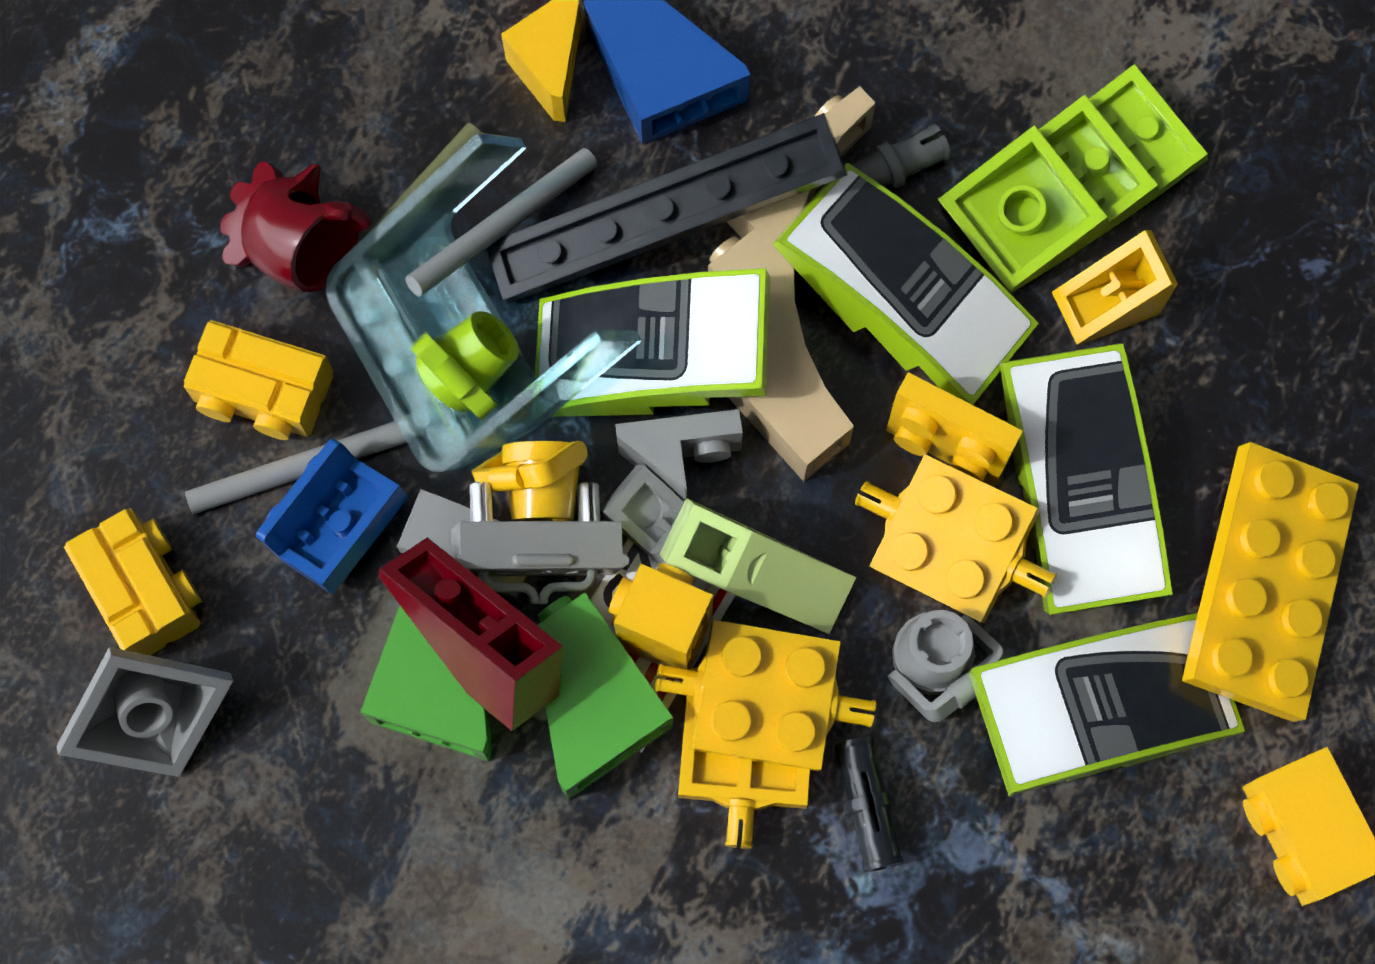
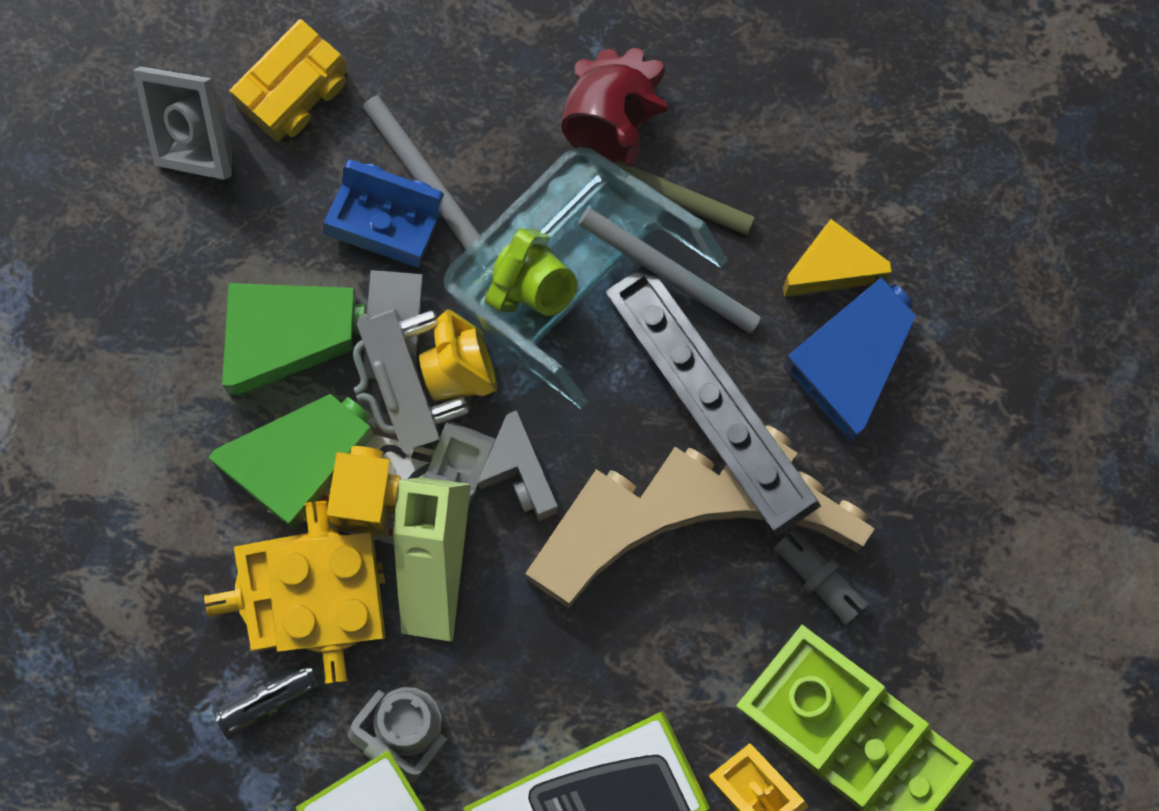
camera: 70 degrees right, 5 degrees up
(258, 380) = (480, 121): yellow brick -> none
(476, 633) = (307, 348): dark red slope -> none
(697, 334) = (606, 449): slope -> none
(905, 283) = (709, 615): slope -> none
(951, 430) = (588, 662): yellow plate -> none
(955, 538) = (502, 713): yellow plate -> none

